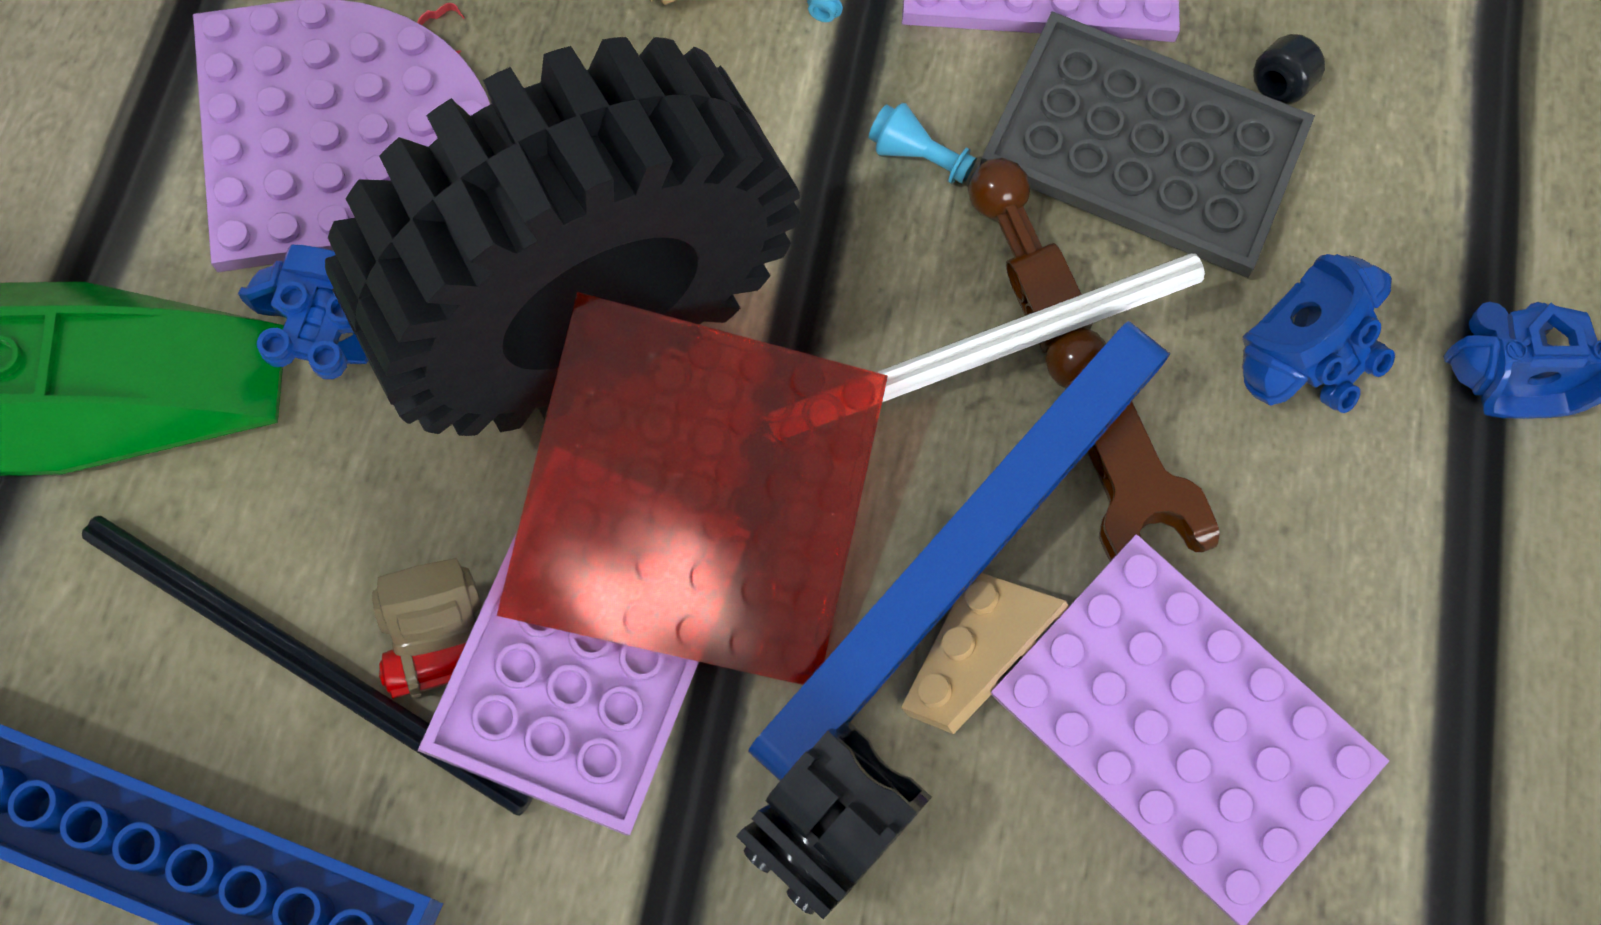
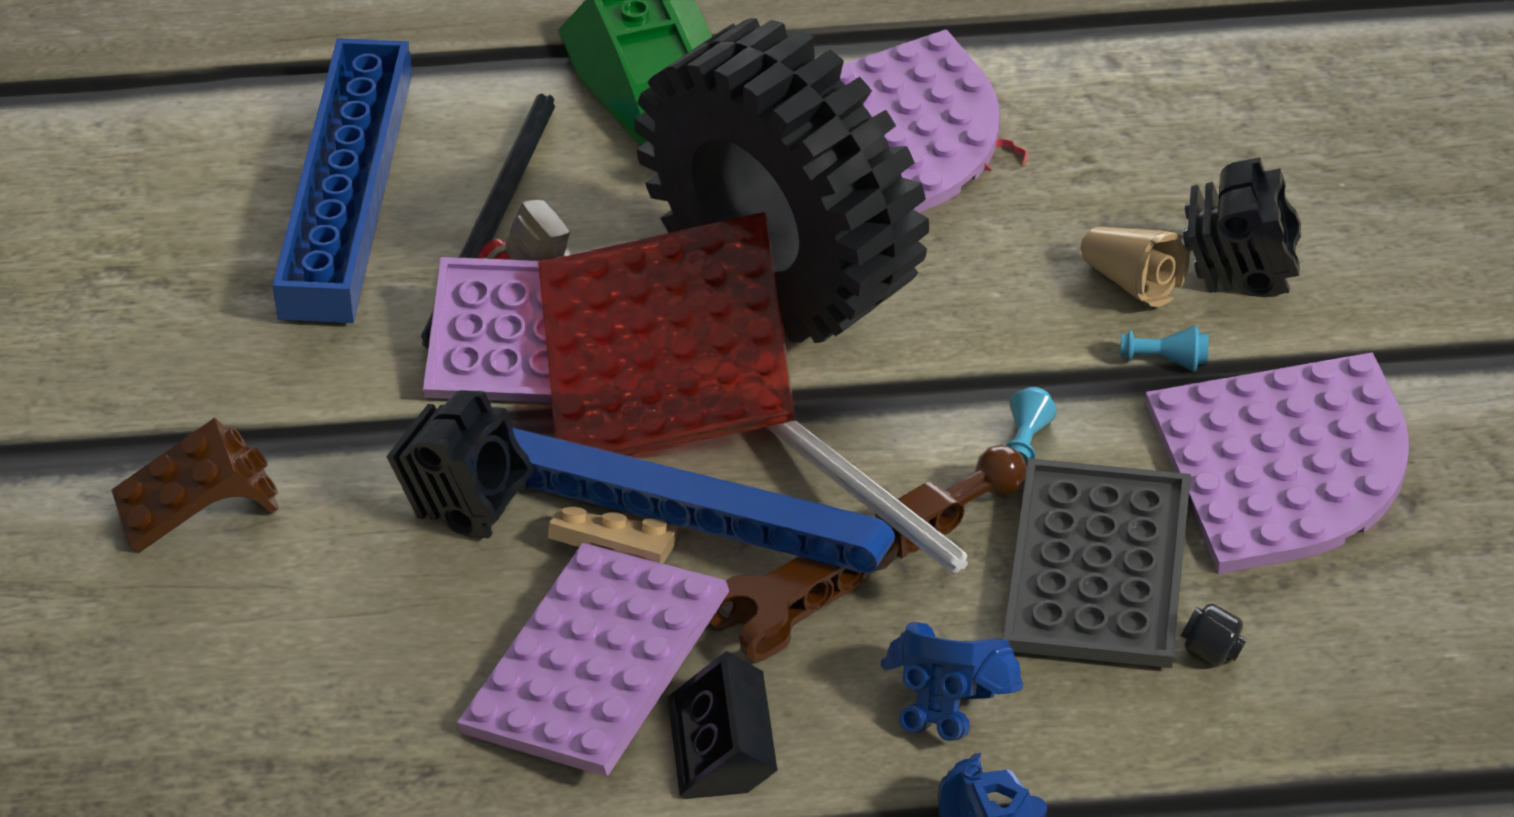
camera: 80 degrees right, 25 degrees down
(1330, 608) = (722, 730): none -> black slope

